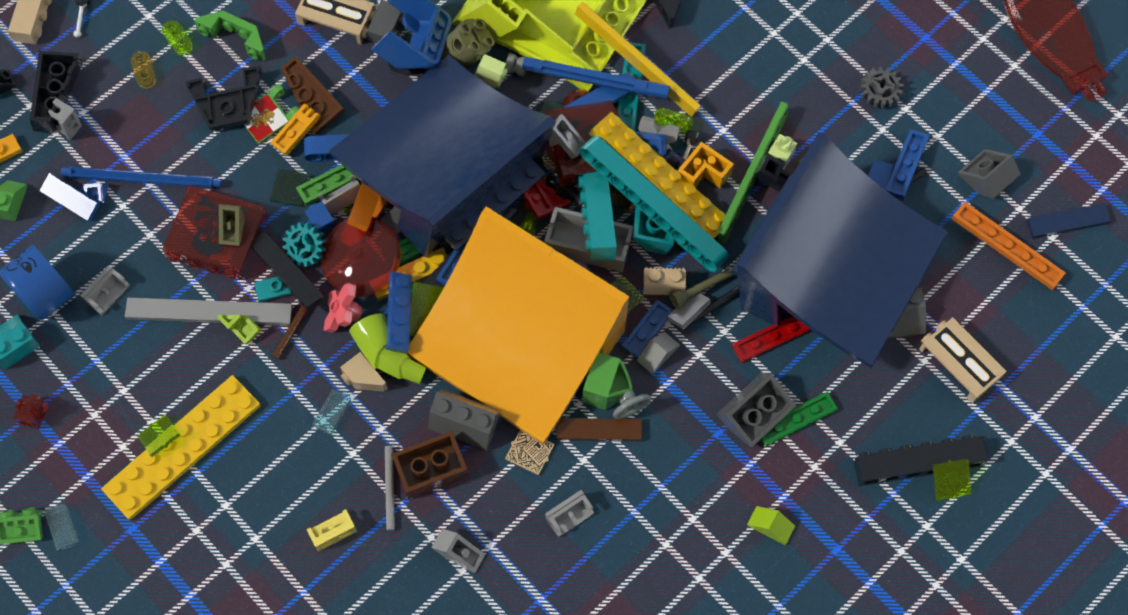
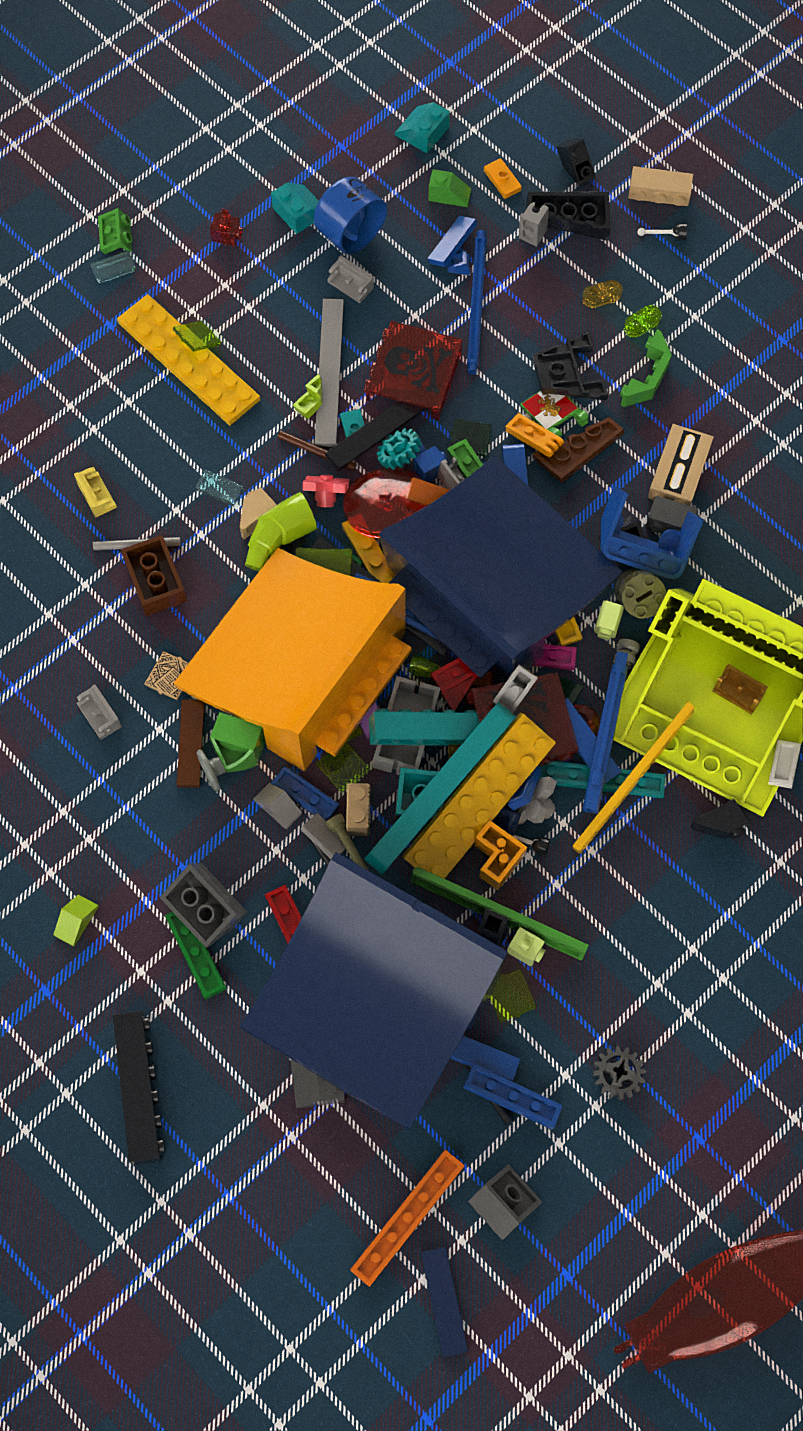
camera: 90 degrees right, 0 degrees up
(230, 224) = (413, 375): olive slope -> none
(399, 312) = (317, 536): blue plate -> none
(458, 550) = (65, 606): light grey slope -> none
(466, 418) = (204, 605): dark grey slope -> none
(665, 117) = (558, 833): clear neon green plate -> none
(951, 479) = (112, 1120): clear neon green piece -> none
(963, 358) = (258, 1144): tan panel -> none

